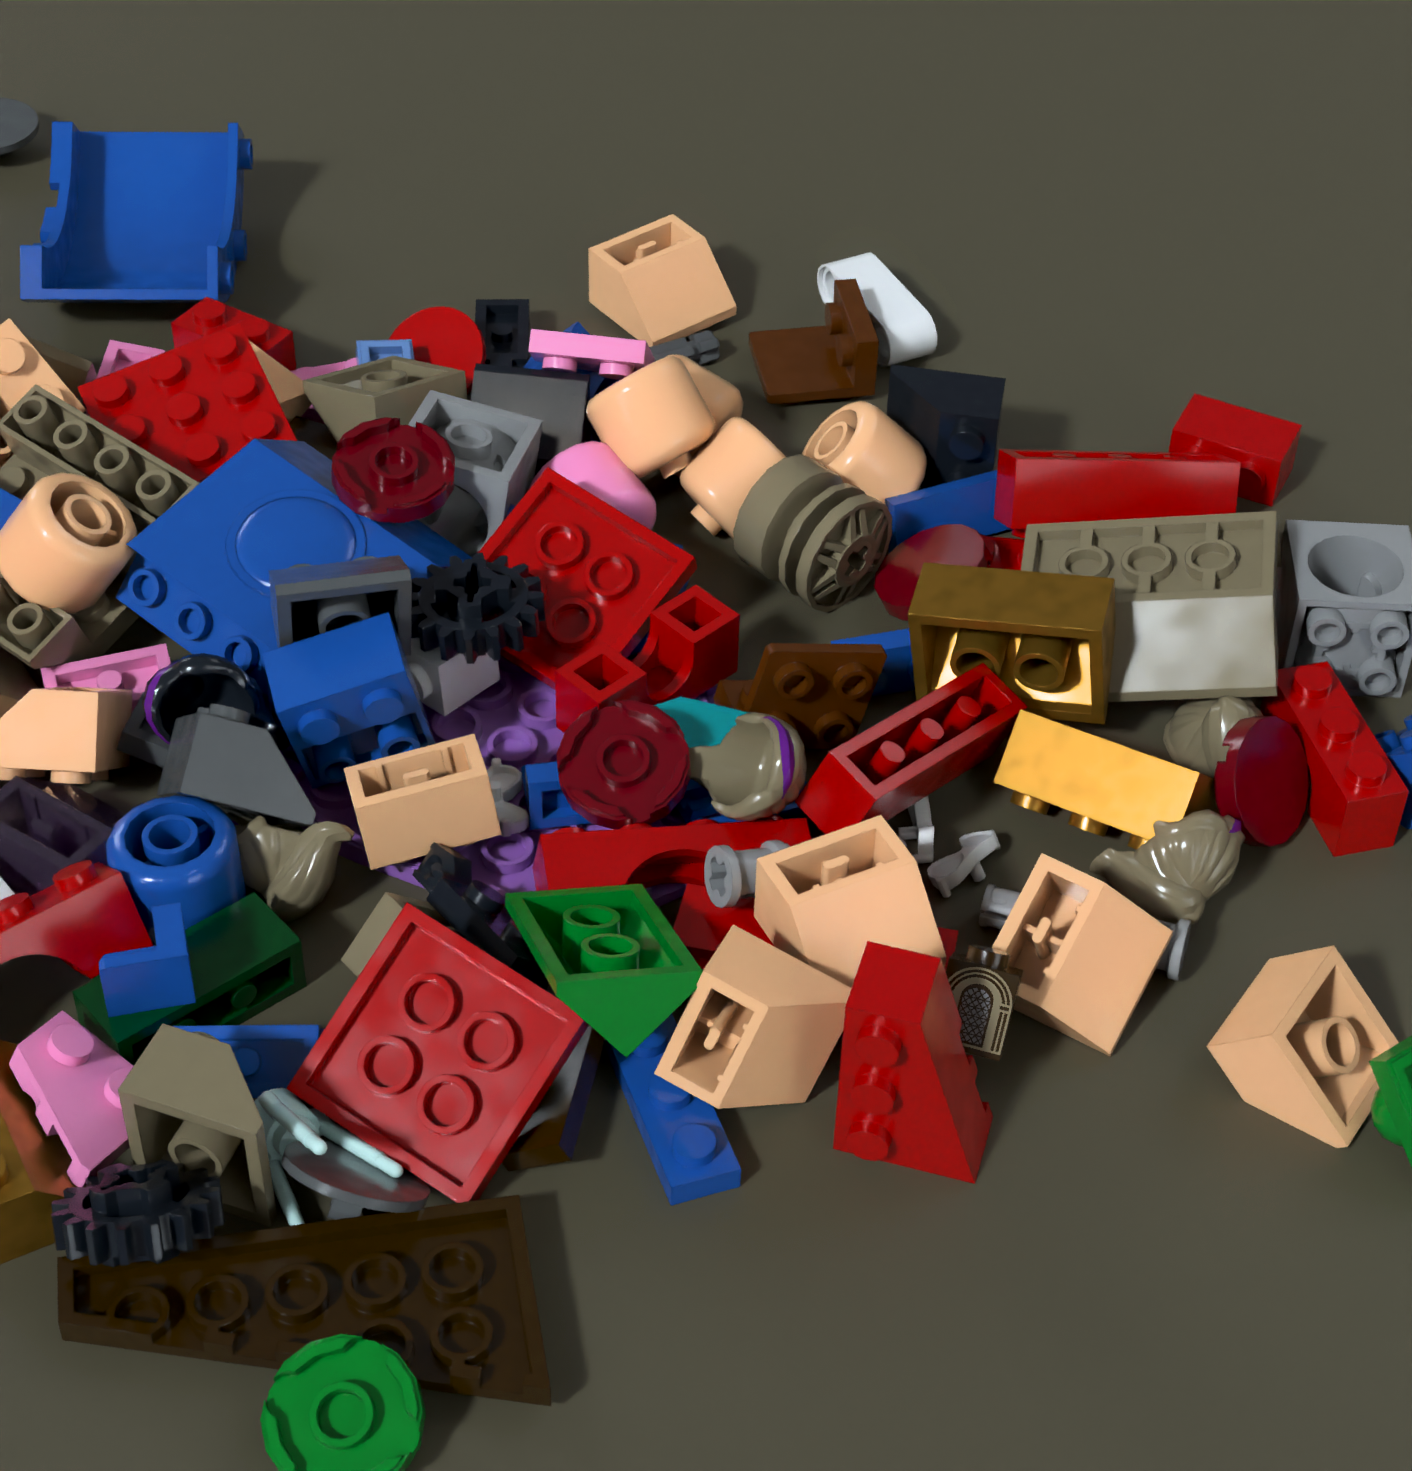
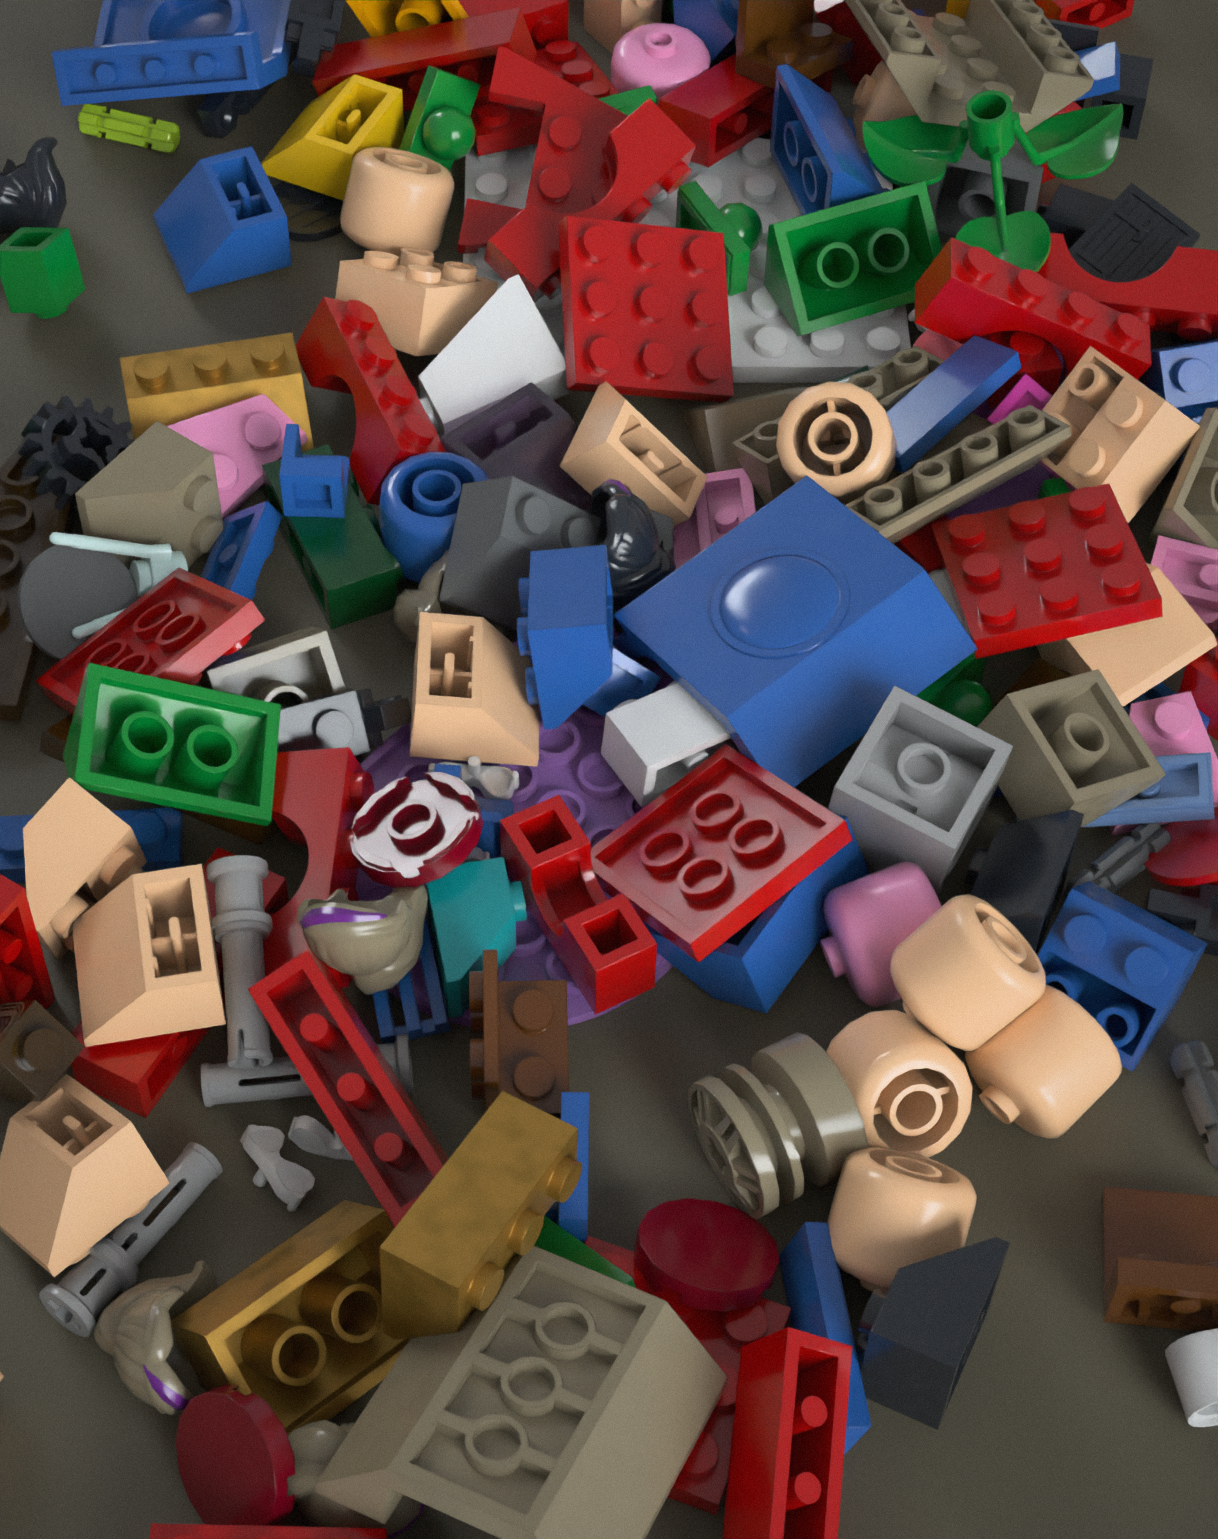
camera: 105 degrees right, 10 degrees up
(334, 595) = (650, 603): dark grey slope -> none
(393, 470) = (853, 678): dark red tile -> none
(476, 607) = (651, 732): black gear -> none
(572, 351) = (1082, 932): bright pink wing -> none

